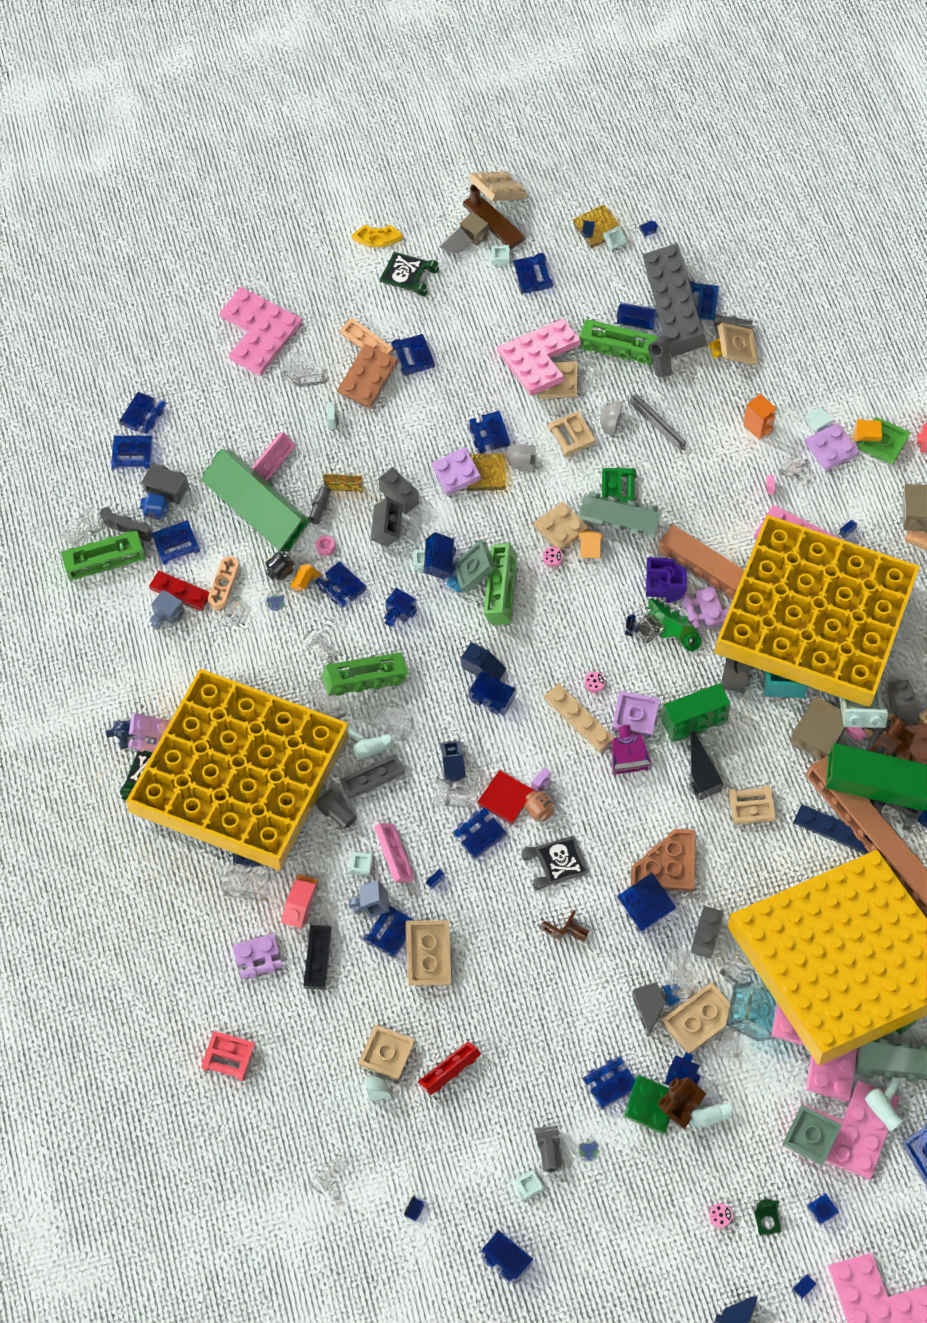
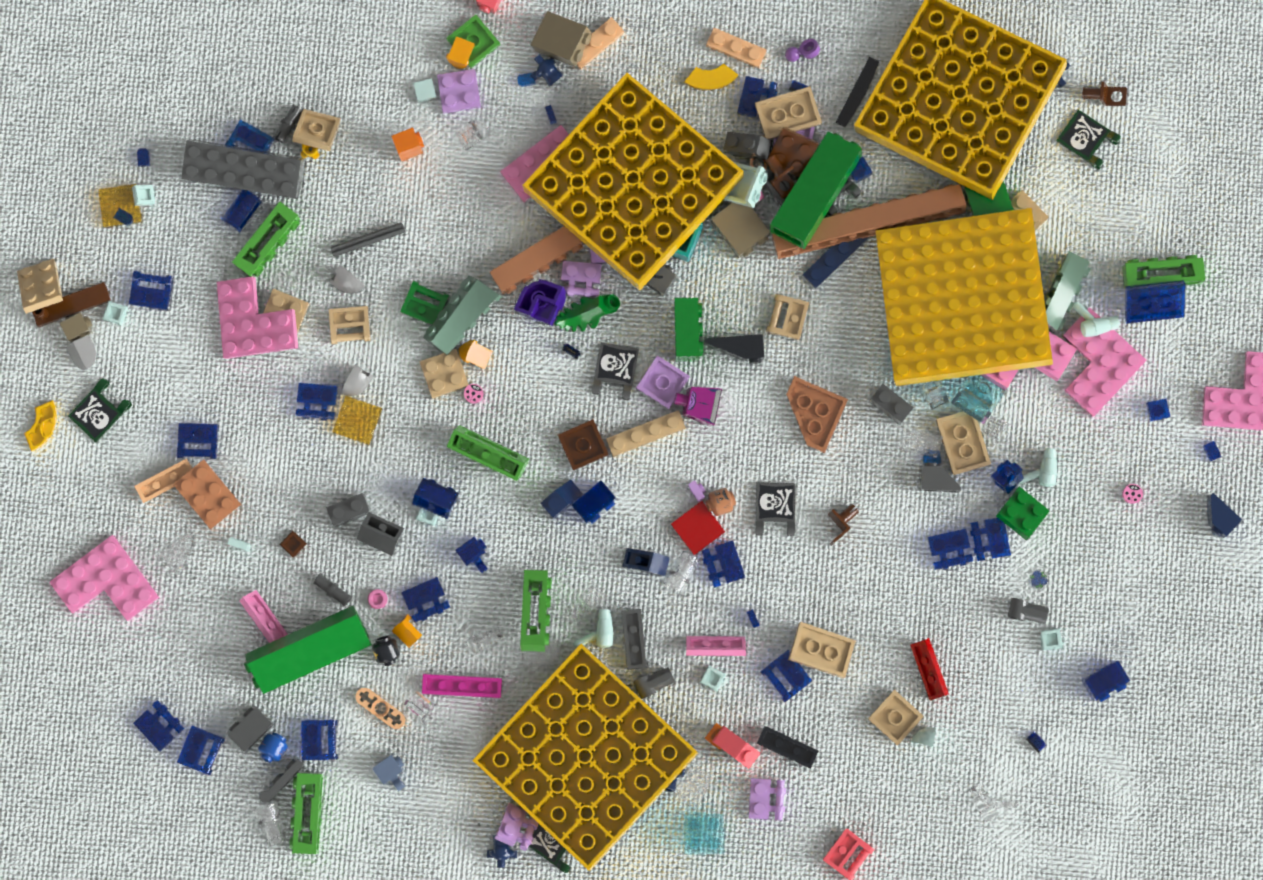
camera: 70 degrees left, 20 degrees up
(186, 592) = (372, 752): red plate -> none
(201, 905) = (704, 833): none -> clear light blue brick
(270, 642) = (461, 686): none -> dark pink plate
(275, 600) = (417, 665): clear tile -> none
(344, 482) = (318, 559): clear yellow tile -> none
(349, 460) = (293, 544): none -> reddish brown tile
(372, 899) = (755, 681): sand blue brick -> none
(453, 583) = (468, 492): dark azure plant -> none
(456, 471) = (348, 448): lavender plate -> none
(473, 566) = (461, 470): sand green plate -> none
(543, 665) = (583, 445): none -> reddish brown plate
(589, 1042) = (948, 543): none -> clear blue plate
(594, 682) = (616, 406): bright pink tile -> none
(632, 669) = (616, 366): none -> flag
(646, 902) = (848, 446): clear blue brick -> none
(648, 627) = (581, 335): clear smoke slope -> none
(661, 356) = (303, 208): dark grey piece -> none
(681, 1100) = (1032, 489): reddish brown cylinder -> none
(767, 1208) = (1140, 456): dark green bracket -> none
(770, 485) = (479, 164): bright pink tile -> none
(812, 1135) = (1099, 393): sand green plate -> none
(871, 498) = (525, 80): none -> clear blue piece
(888, 509) = (547, 70): none -> dark blue piece

